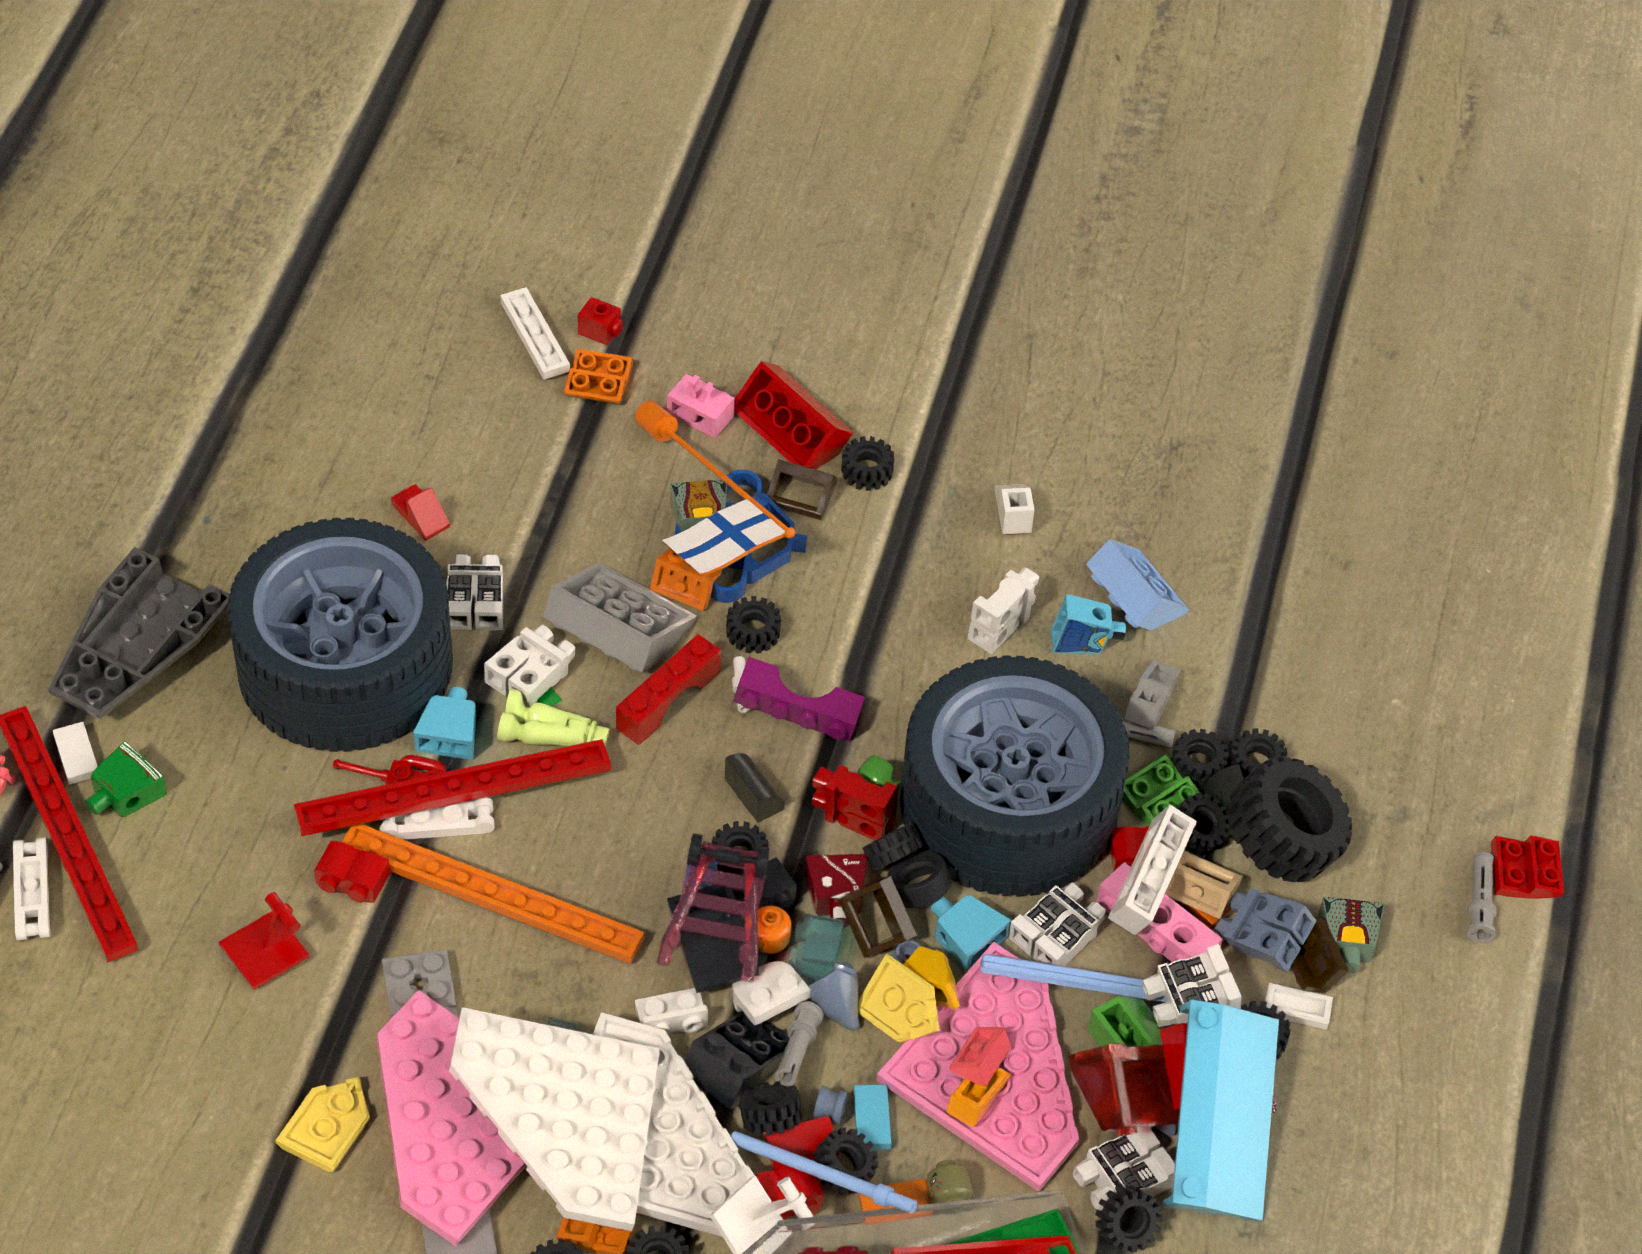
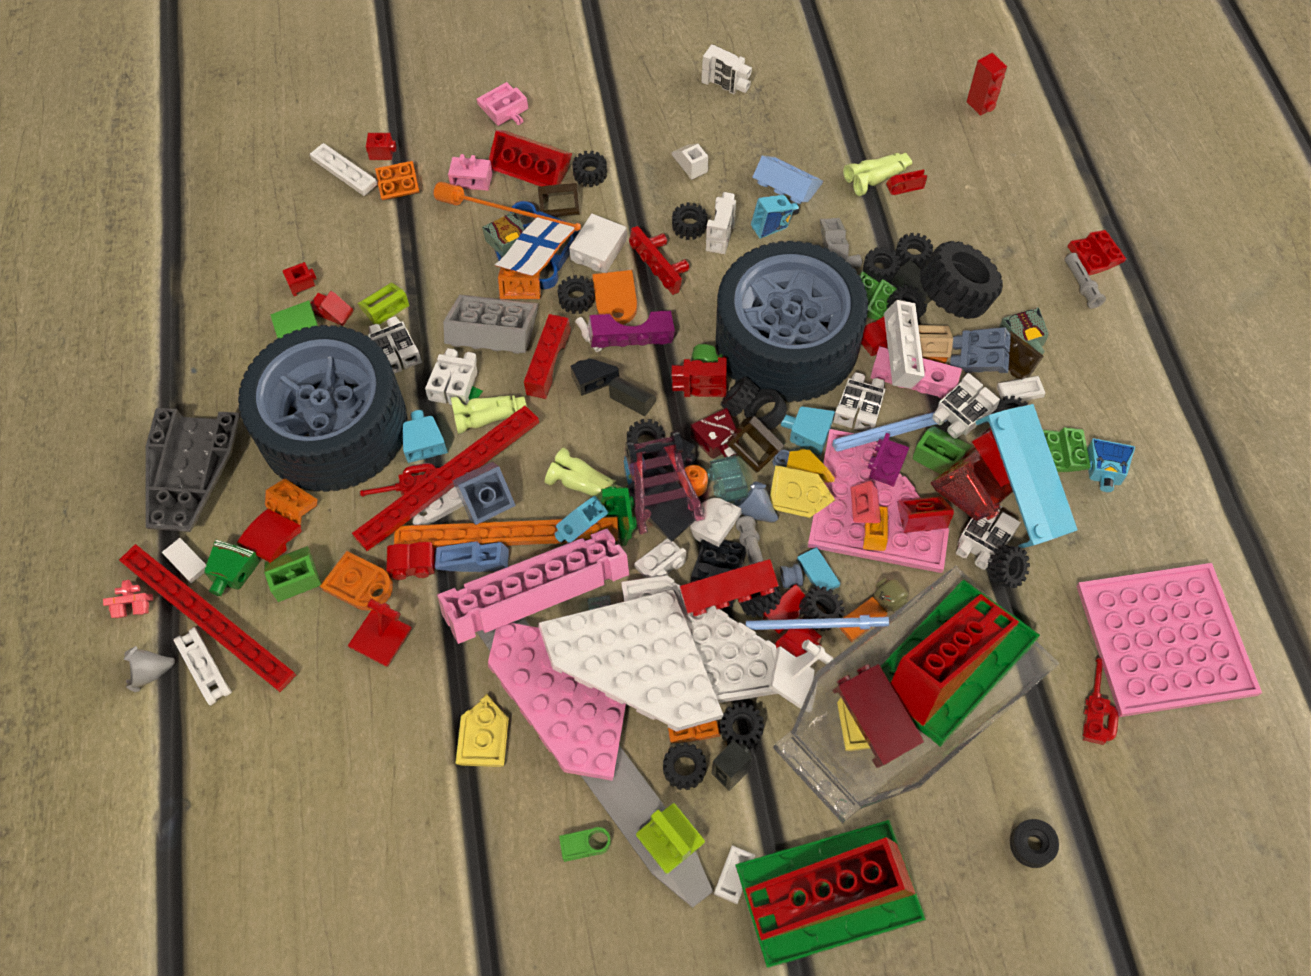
camera: 20 degrees left, 10 degrees up
(193, 764) = (269, 535): none -> red slope
(195, 825) = (292, 574): none -> bright green slope
(239, 734) = (289, 500): none -> orange bracket
(269, 866) = (356, 581): none -> orange tile
(367, 503) = (293, 319): none -> bright green slope
(400, 455) = (299, 278): none -> red brick
(432, 903) = (472, 557): none -> medium blue slope
(486, 965) = (533, 585): none -> bright pink brick
(487, 826) = (484, 493): none -> sand blue brick
(493, 539) = (386, 308): none -> lime tile
(576, 914) = (580, 520): none -> medium azure torso
(625, 862) = (579, 477): none -> yellowish green piece
(647, 911) = (619, 504): none -> green bracket
(714, 738) = (592, 375): none -> black slope
(730, 1072) = (729, 586): none -> red brick
(798, 328) = (503, 104): none -> bright pink plate
(808, 646) = (616, 294): none -> orange tile
(821, 569) = (598, 243): none -> white brick
(892, 645) = (659, 266): none -> red plate
(958, 576) = (689, 212): none -> black tyre
(1045, 1014) = (888, 462): none -> magenta bracket
(1051, 1104) = (924, 514): none -> red slope
(1132, 400) = (725, 70): none -> white hips
(1271, 625) = (875, 171): none -> yellowish green piece
(1308, 660) = (908, 182): none -> red piece
(1308, 1109) = (1068, 449): none -> bright green slope
(1360, 1152) = (1109, 462): none -> torso
(1497, 567) = (986, 84): none -> red brick

